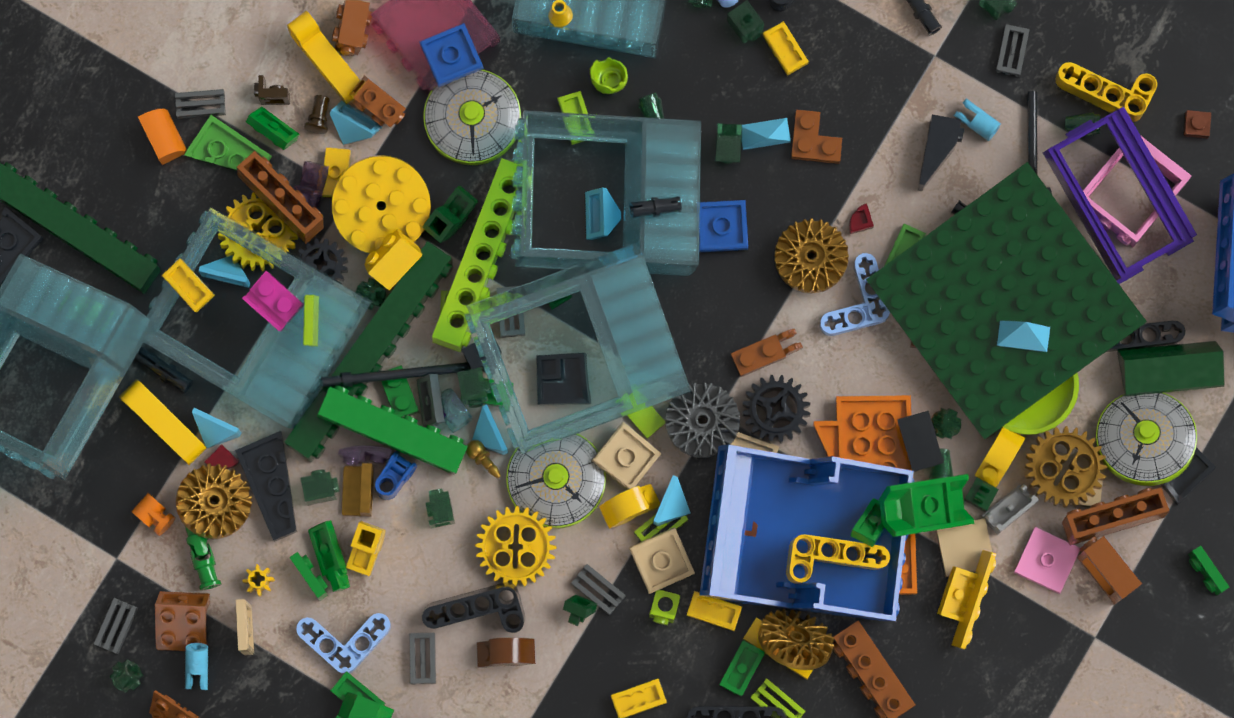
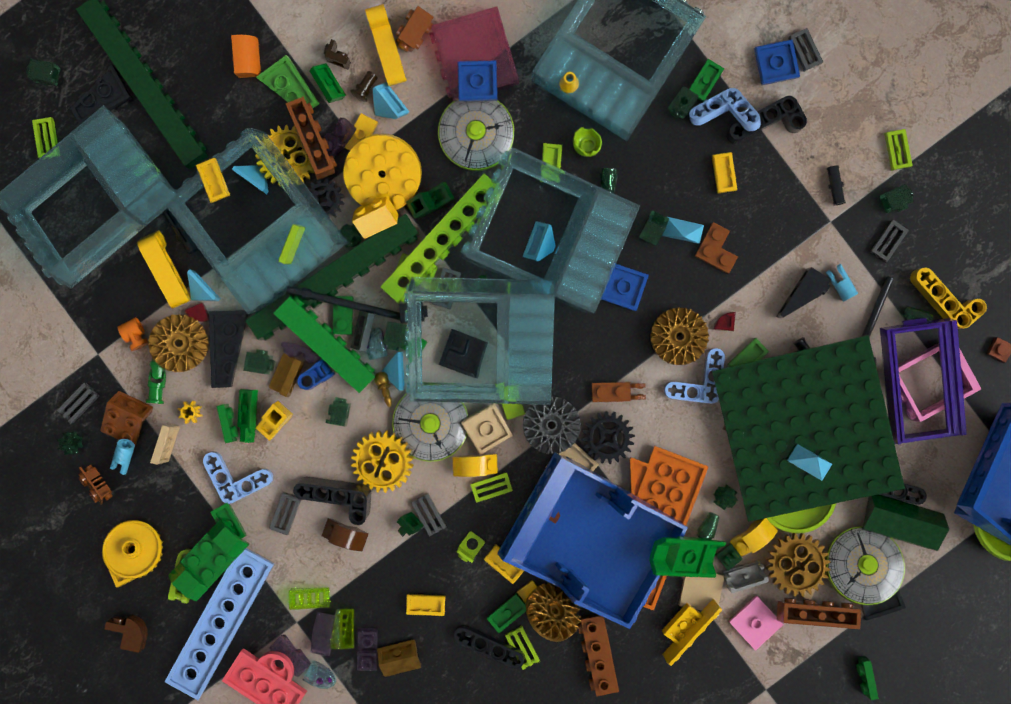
camera: 20 degrees right, 10 degrees up
(196, 95) = (267, 38): dark grey tile -> none
(273, 301) = (270, 217): dark pink plate -> none
(376, 100) = (410, 94): dark orange brick -> none
(655, 207) = (580, 258): black pin -> none
(661, 560) = (481, 513): tan tile -> none
(673, 504) = (505, 478): medium azure slope -> none
(746, 22) = (703, 142): clear green brick -> none
(838, 556) = (606, 567): yellow beam -> none
(869, 526) = (640, 554): green plate -> none
(920, 441) = (702, 505): black piece -> none
(1108, 569) = (797, 652): dark orange window -> none

